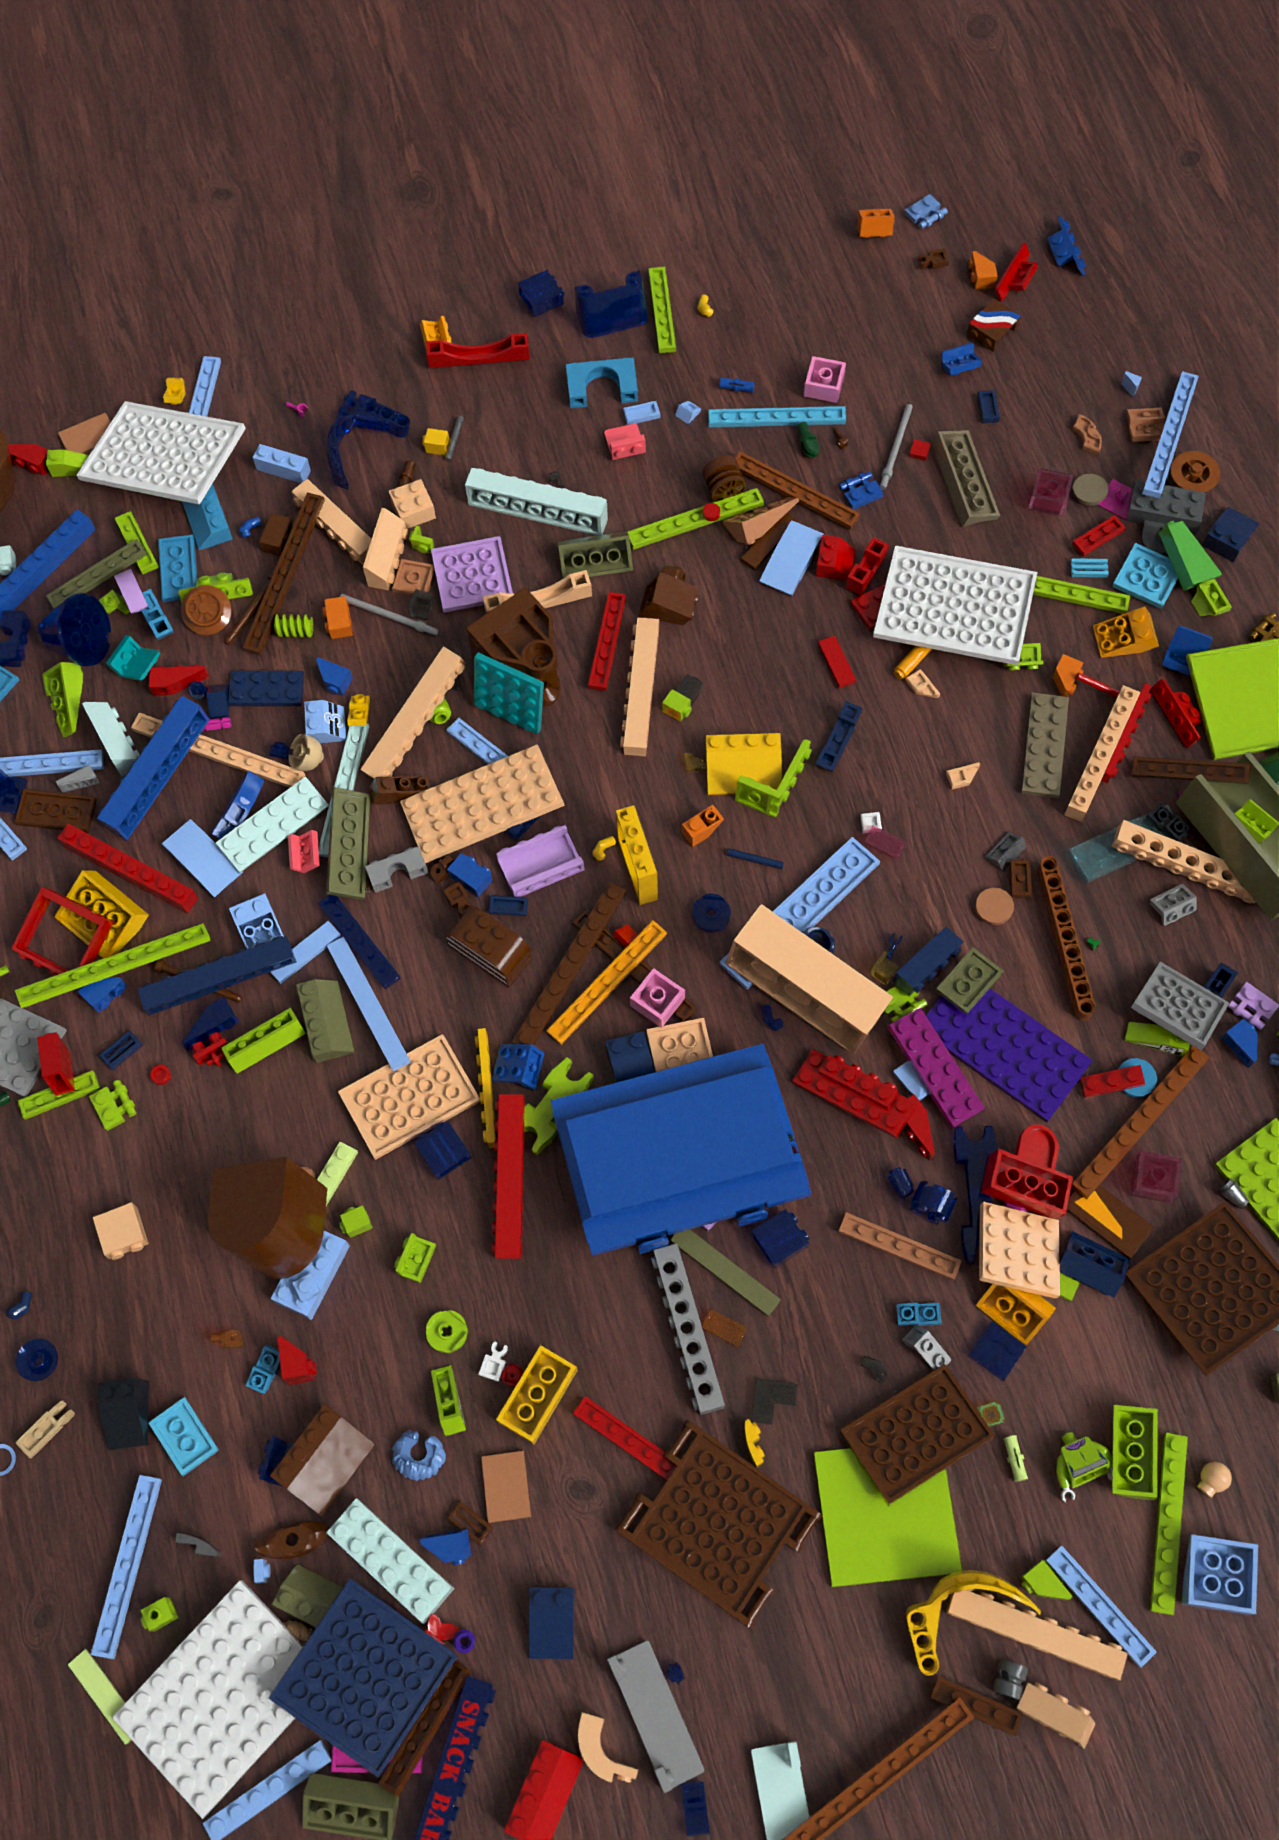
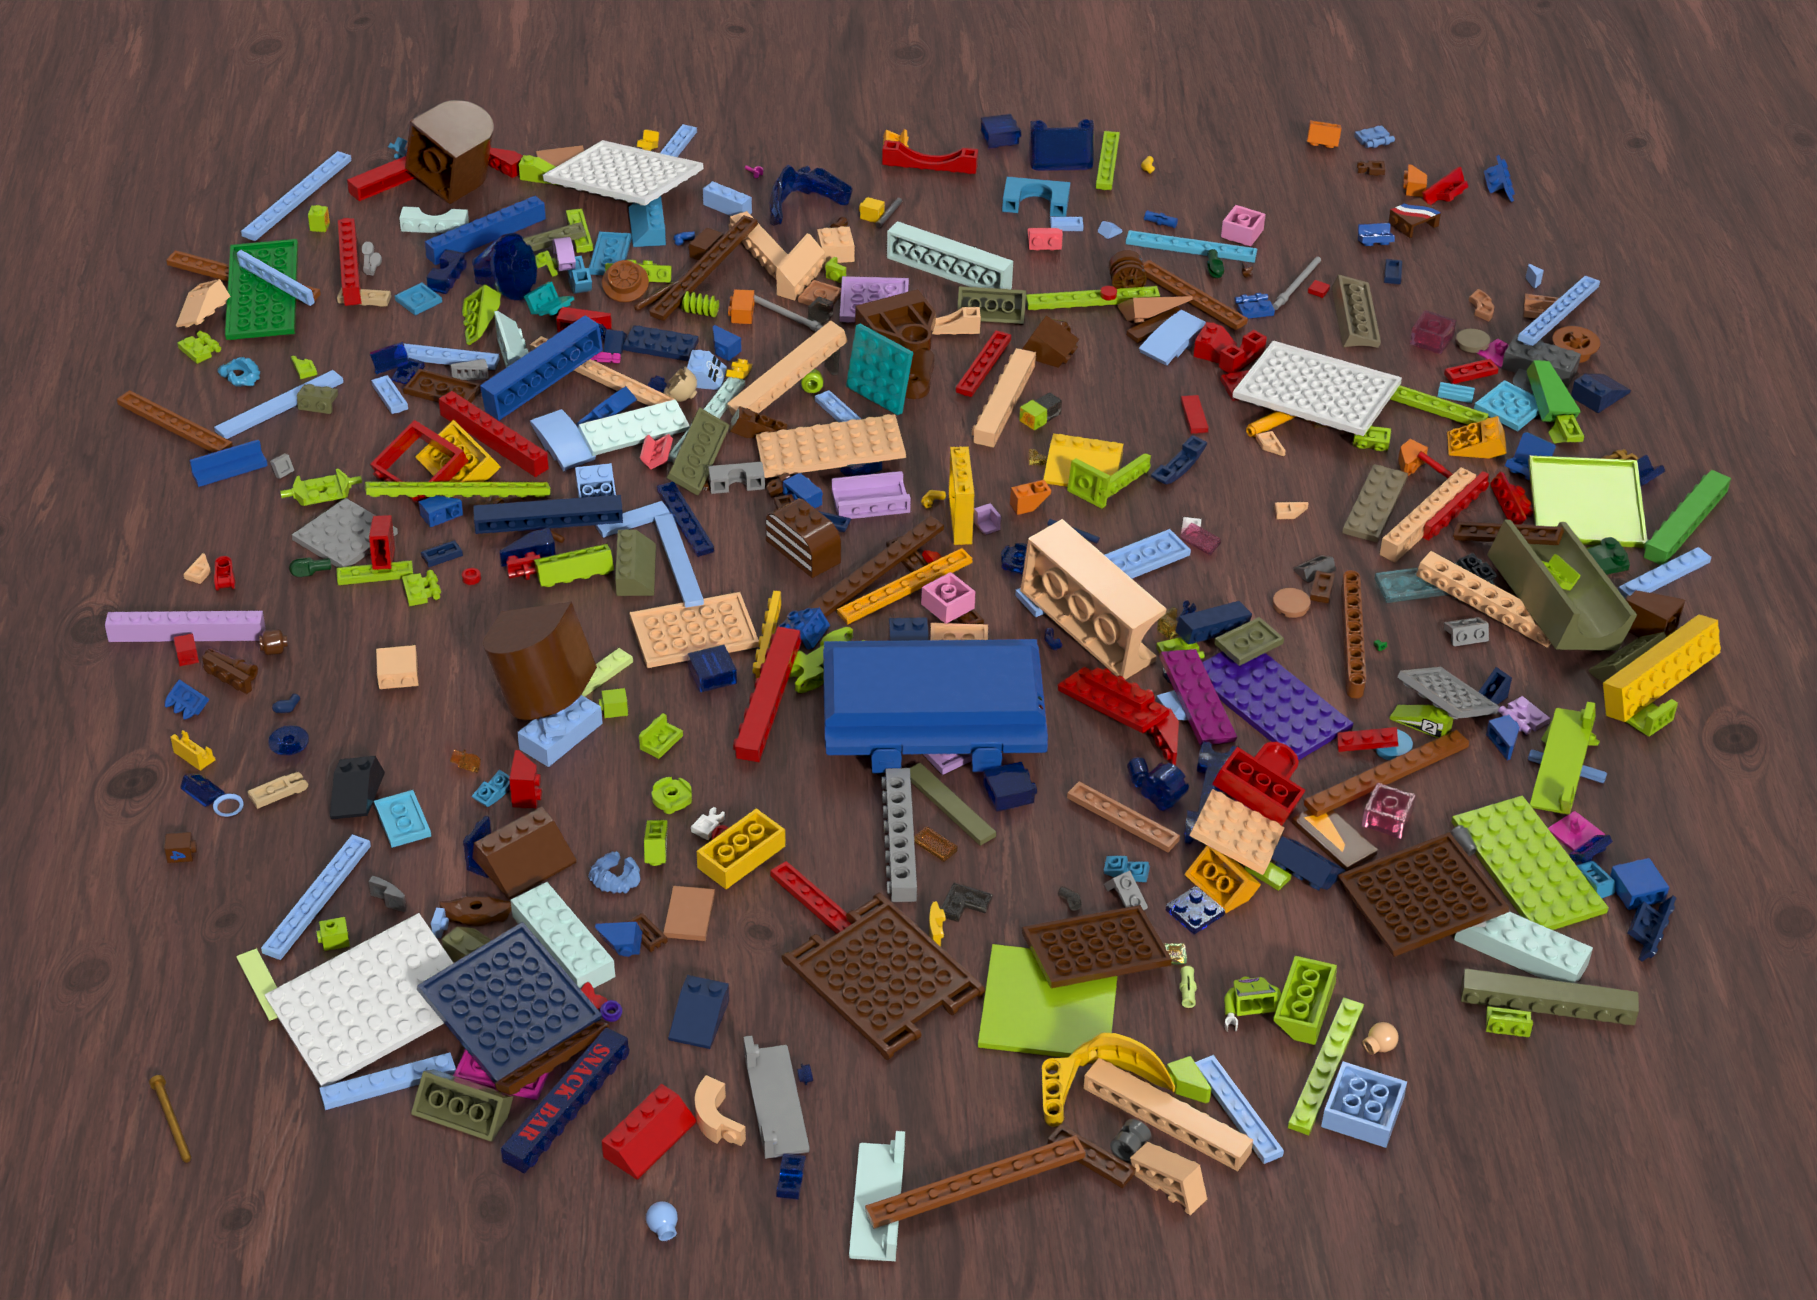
camera: 10 degrees right, 25 degrees down
(667, 866) = (987, 519): none -> lavender panel

